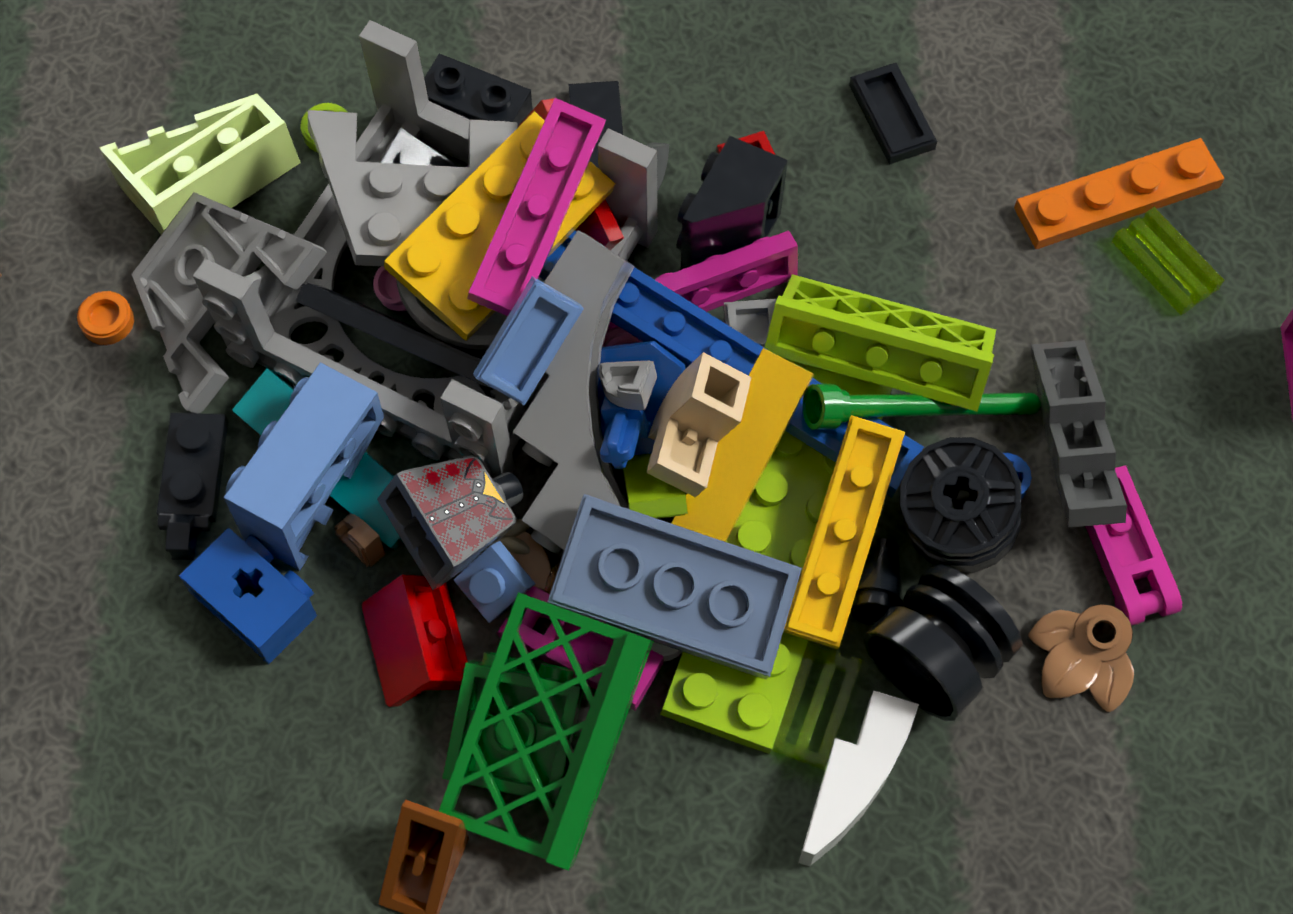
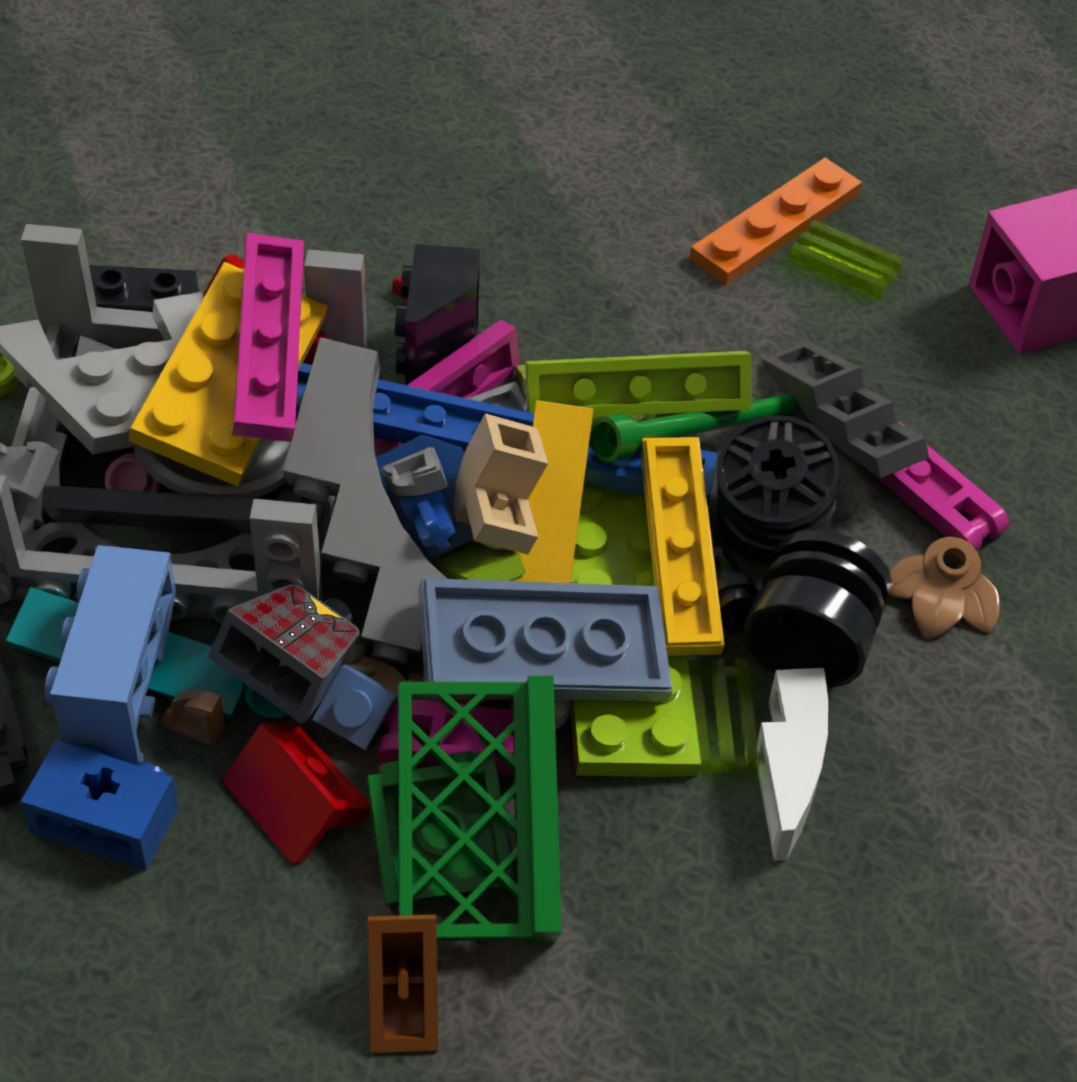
camera: 25 degrees left, 15 degrees down
(528, 341) = (311, 448): medium blue tile -> none
(892, 113) = (542, 213): black tile -> none

